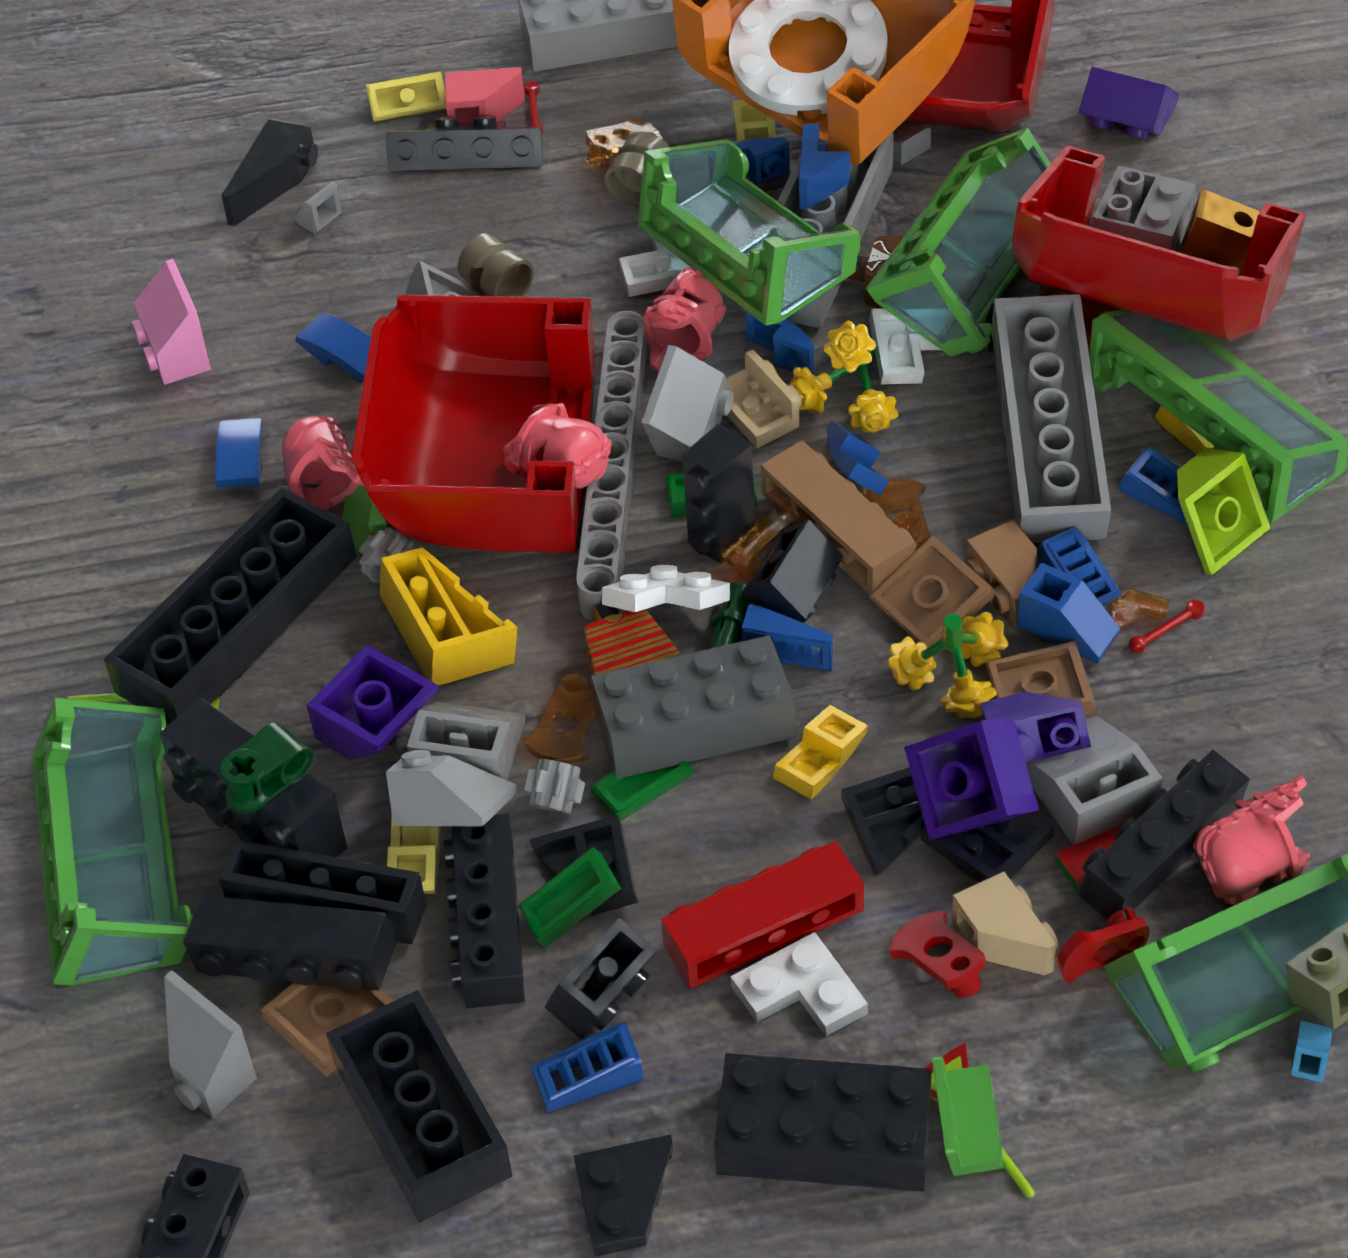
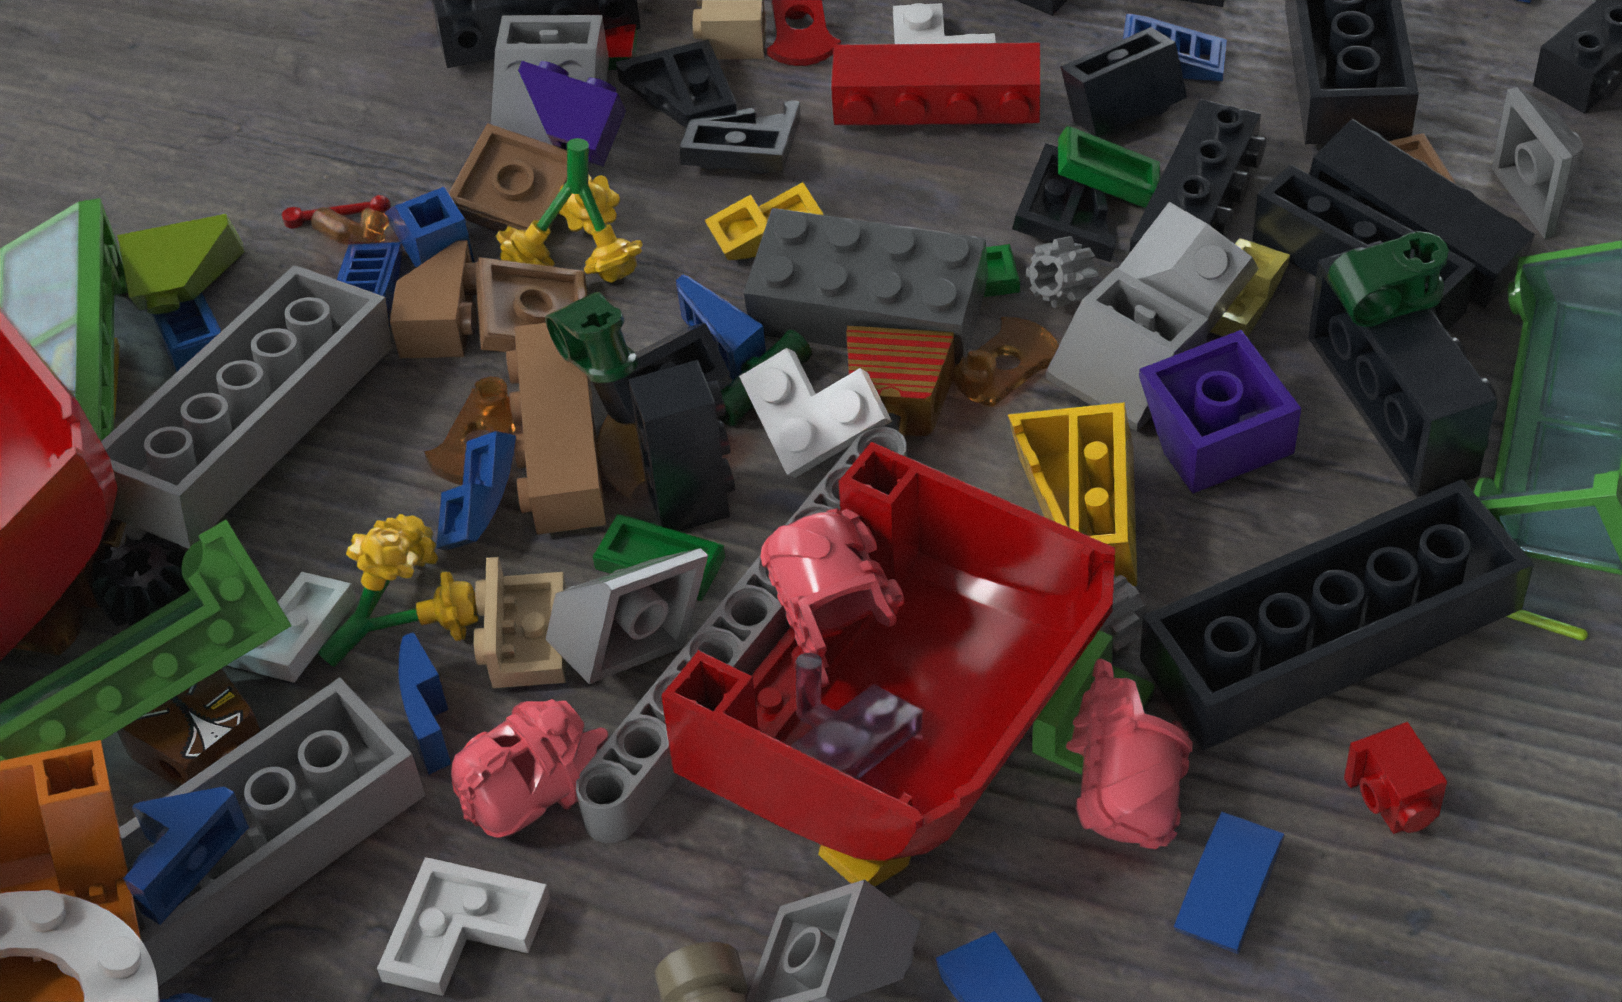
camera: 150 degrees left, 0 degrees up
(159, 540) = (1397, 778): none -> red brick
(496, 400) = (857, 733): none -> plate
(737, 234) = (363, 787): windscreen -> none
(836, 527) = (592, 338): none -> dark green piece
(971, 777) = (667, 66): dark purple slope -> none

